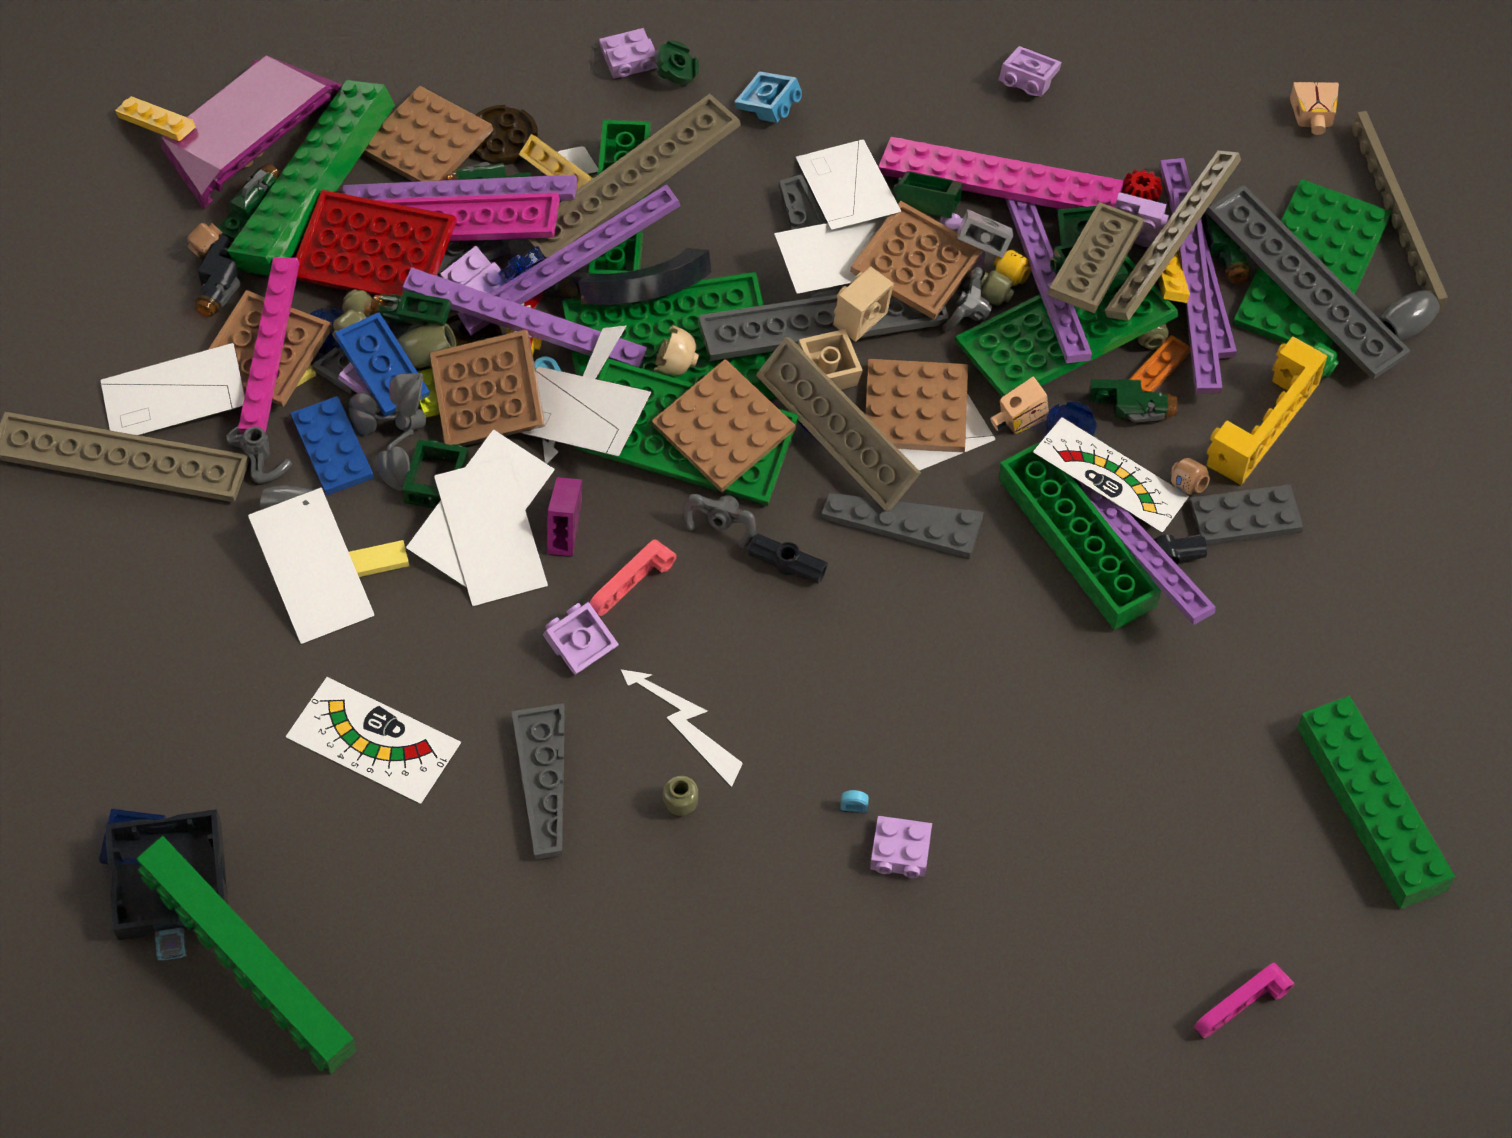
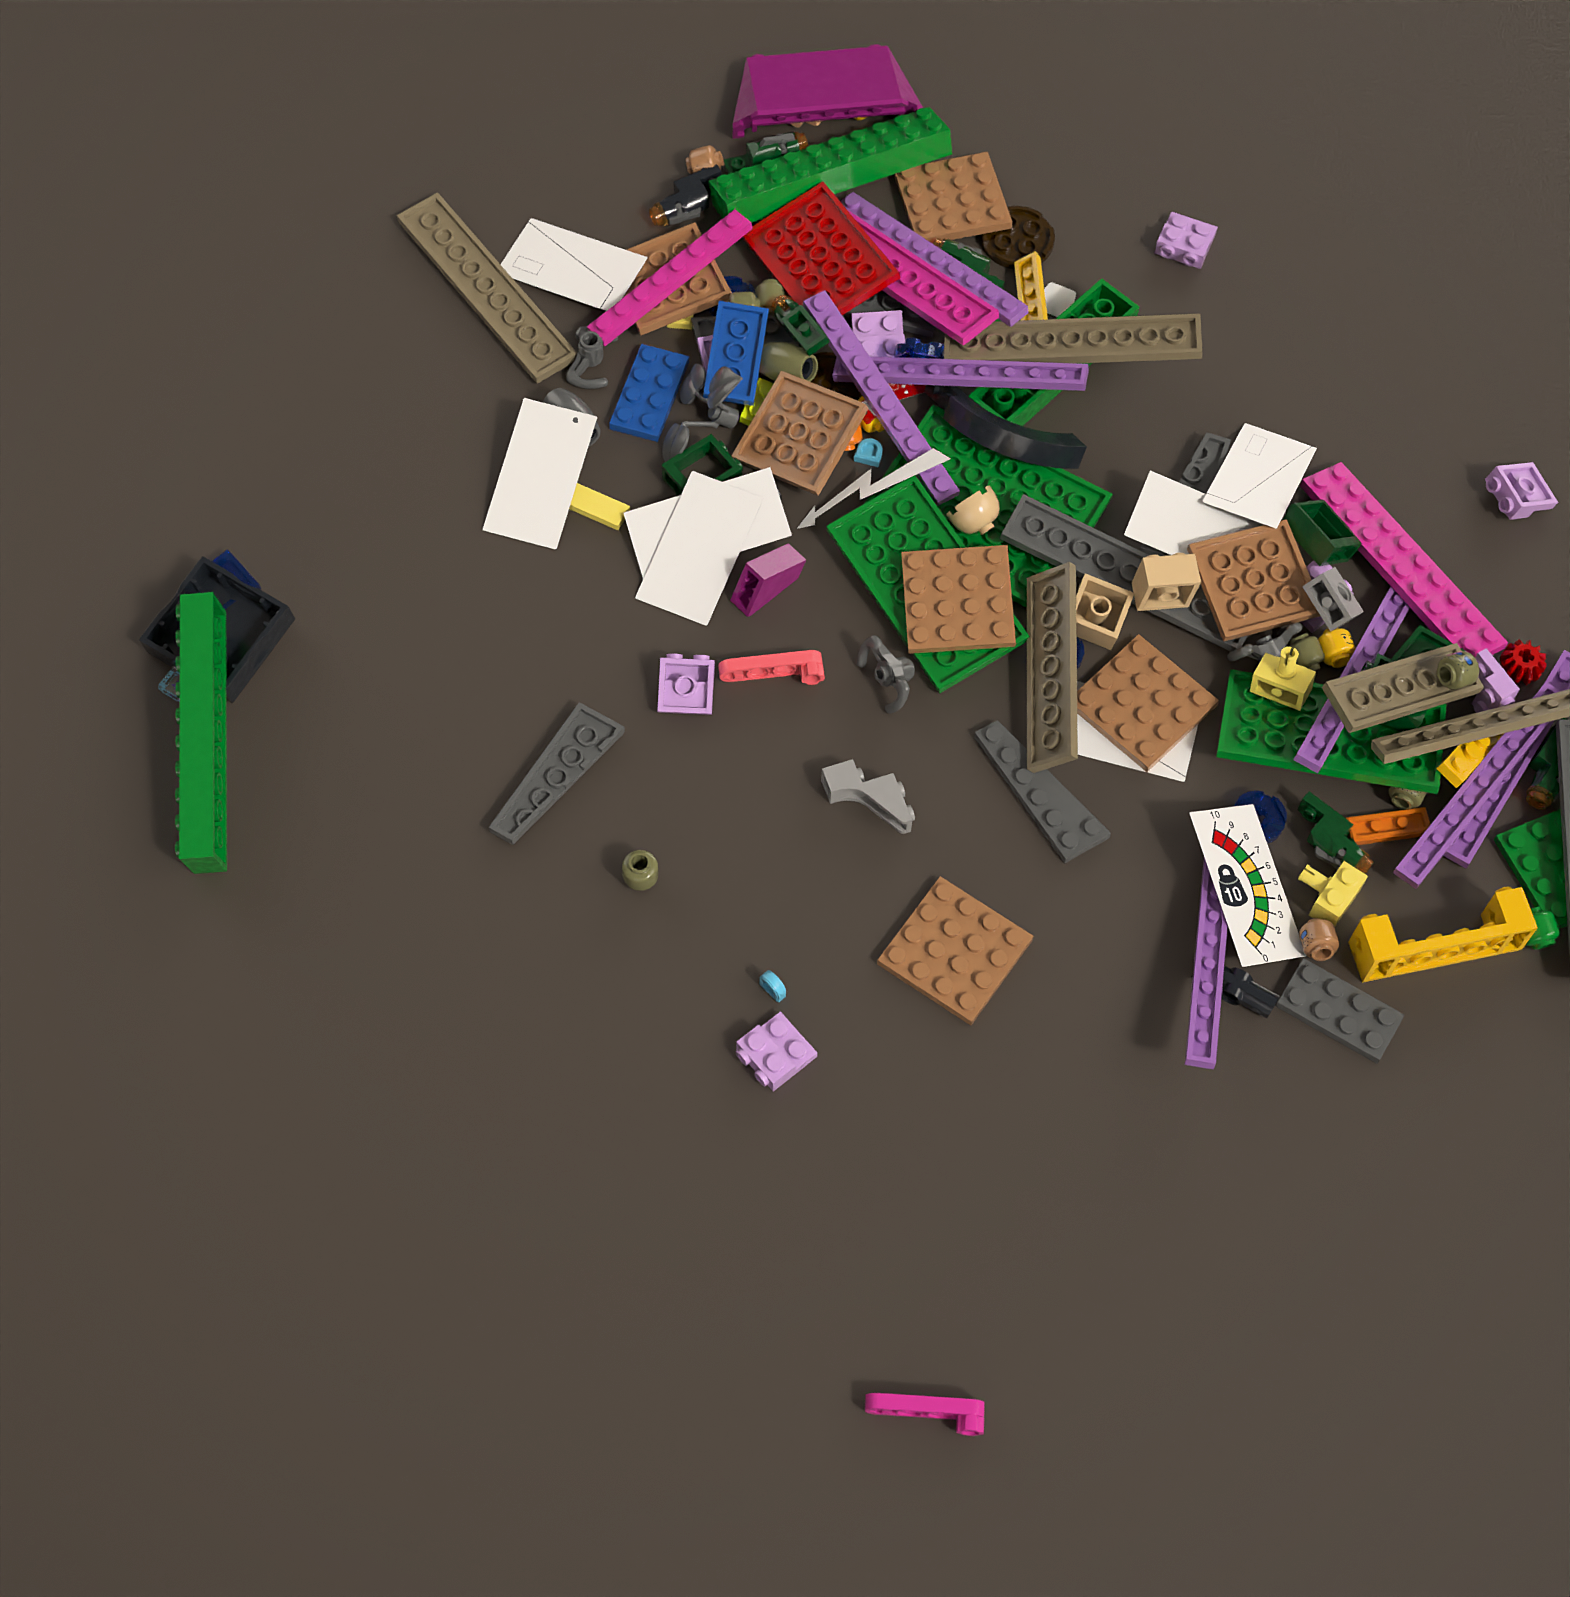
camera: 40 degrees right, 5 degrees up
(155, 118) = (756, 39): yellow plate -> none
(373, 740) = (464, 645): white sticker -> none
(587, 411) = (859, 505): white sticker -> none
(681, 72) = (1202, 274): dark green plate -> none
(718, 757) = (704, 857): white sticker -> none
(770, 96) = (1268, 356): dark azure plate -> none
(775, 552) = (916, 760): black piece -> none
(801, 608) = (880, 795): none -> light grey arch
(955, 677) = (955, 950): none -> medium nougat plate
(1003, 314) = (1283, 679): none -> light yellow brick
(1022, 407) = (1225, 770): light nougat torso -> none
(1080, 537) = (1168, 918): green brick -> none
(1123, 217) = (1458, 670): none -> olive head
(1171, 436) = (1334, 892): none -> light yellow brick
(1375, 802) = (1206, 1343): green brick -> none

